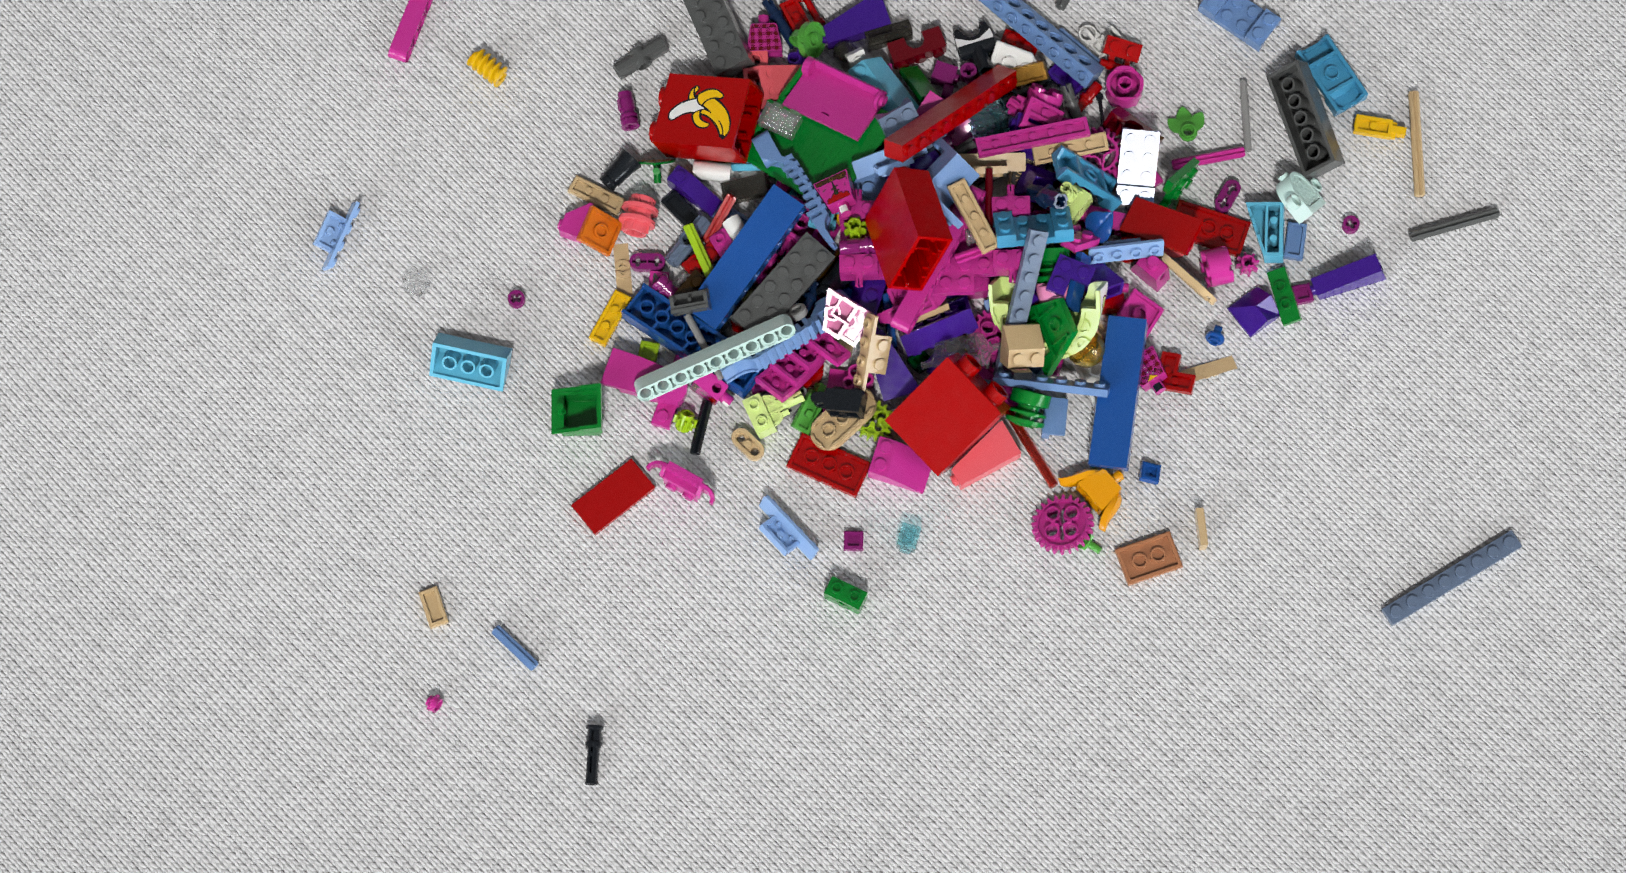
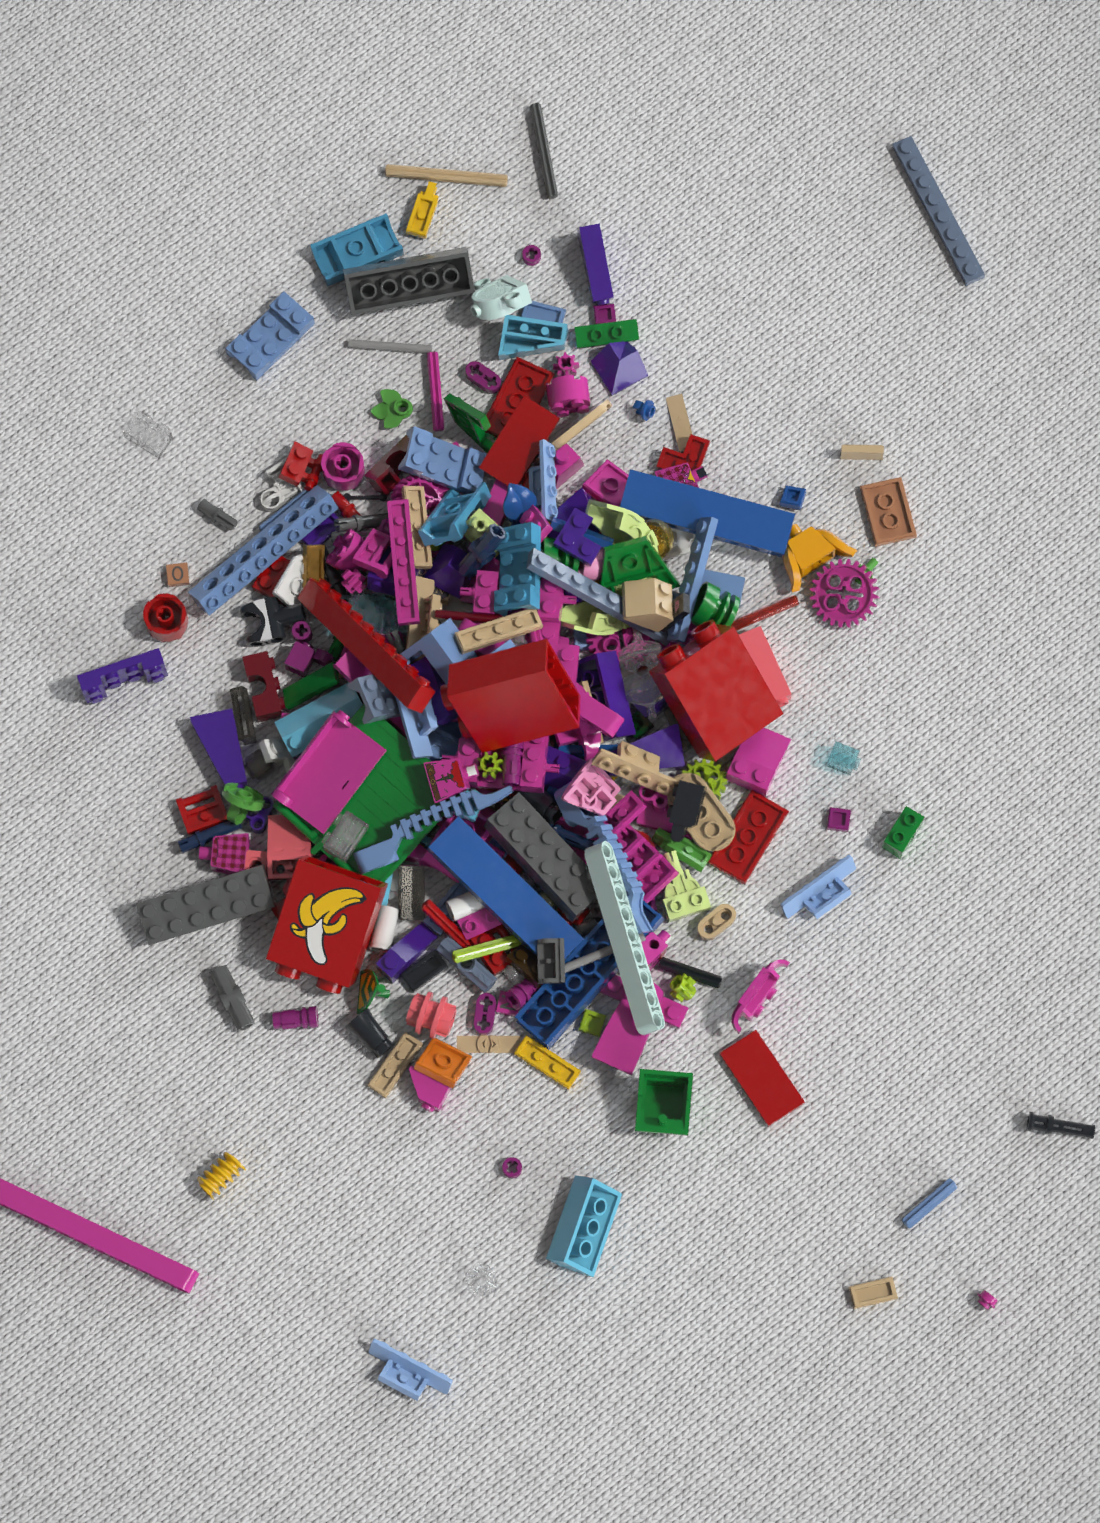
camera: 85 degrees left, 0 degrees up
(798, 312) = (578, 841): light grey tile -> none

